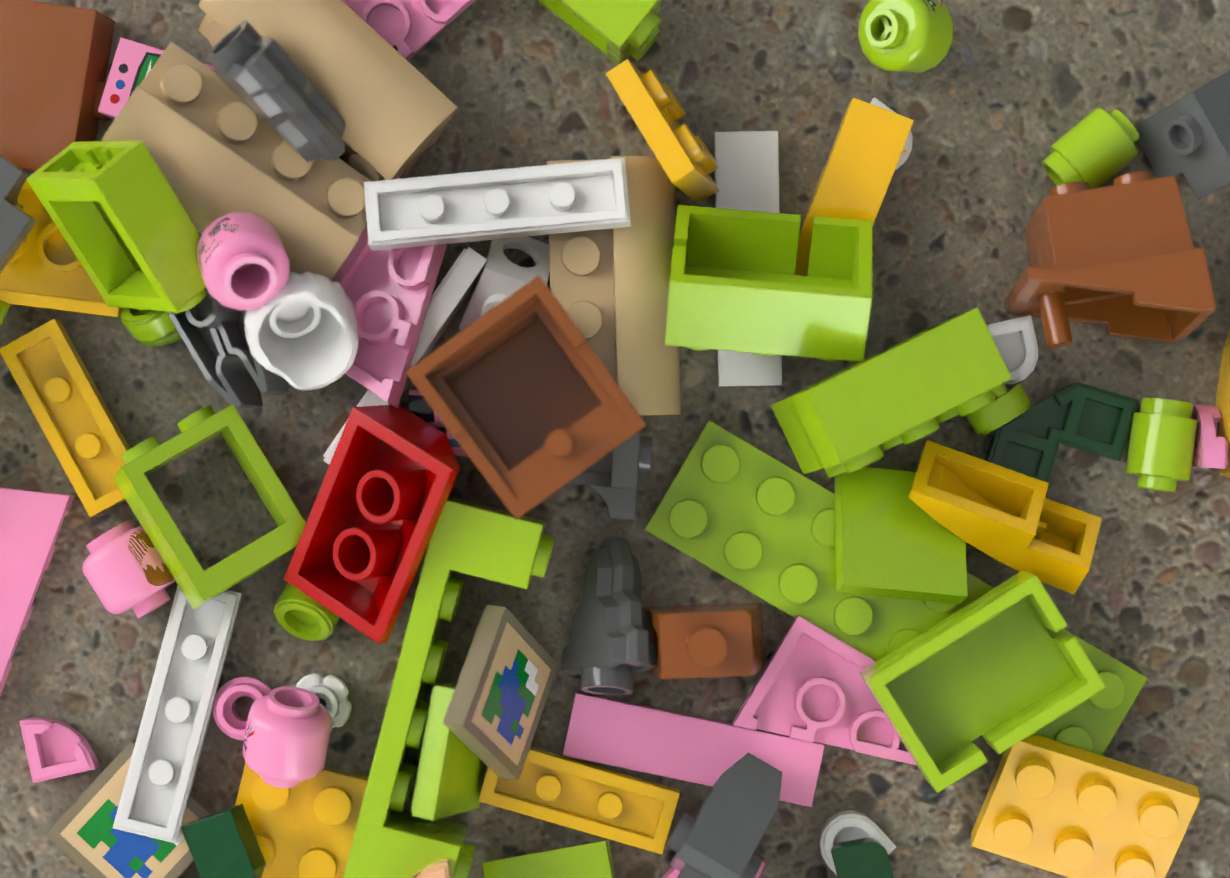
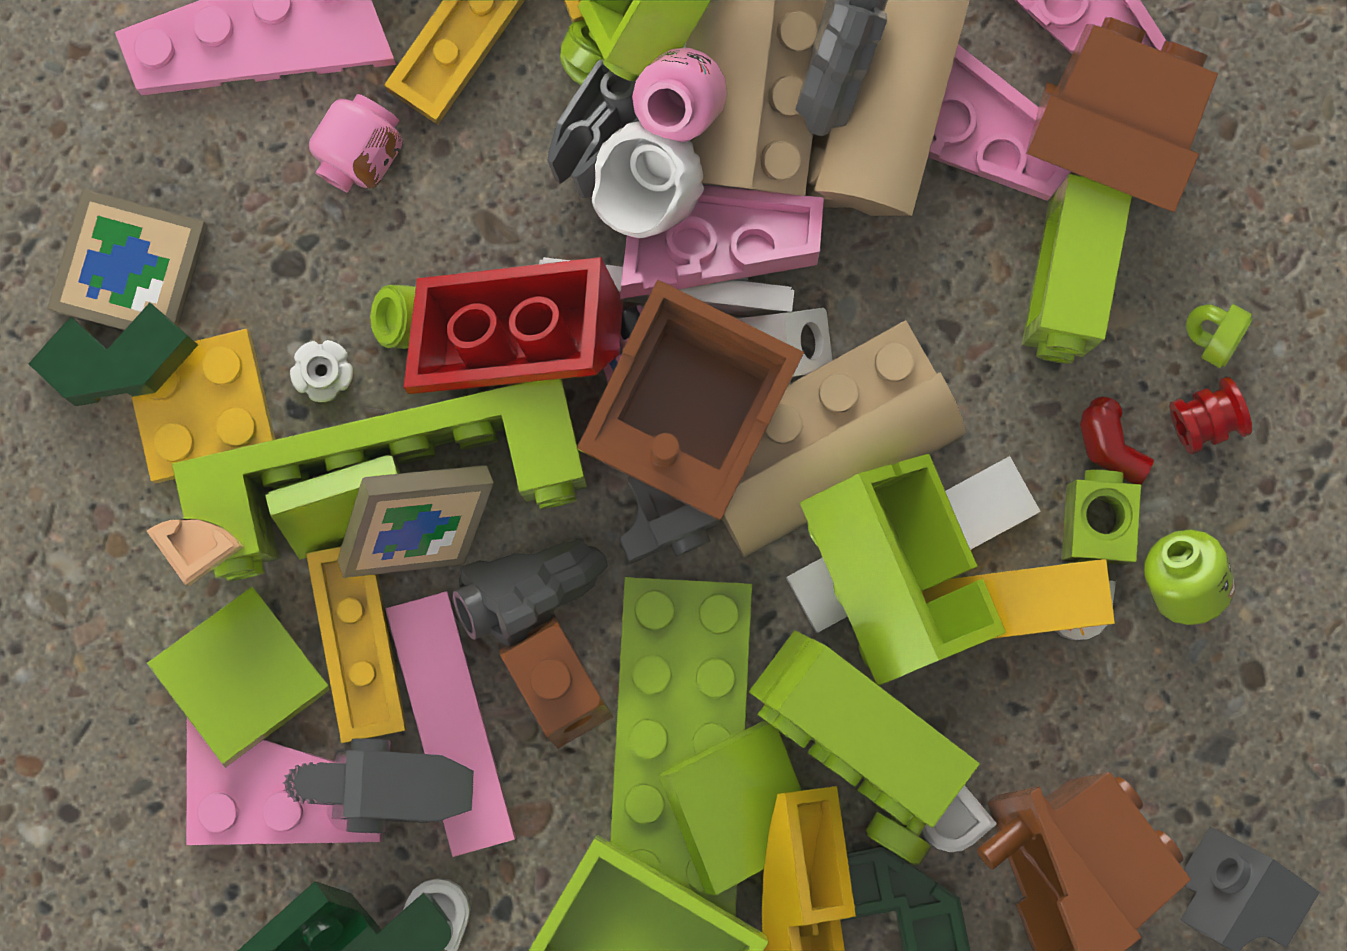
camera: 55 degrees right, 5 degrees down
(55, 749) = (163, 160): bright pink tile -> none
(177, 716) = (251, 248): white tile -> none
(196, 429) = (412, 237): lime window -> none
(225, 699) = (270, 292): bright pink plate -> none
(287, 736) = (278, 353): bright pink head -> none
(497, 204) = (845, 294): white tile -> none
(656, 115) = (996, 395): yellow plate -> none
(747, 39) = (1106, 442): none -> red arm
(818, 696) = (556, 810): bright pink wing -> none
(841, 72) = (1084, 543): none -> lime brick
(1093, 149) = (1175, 801): lime brick -> none

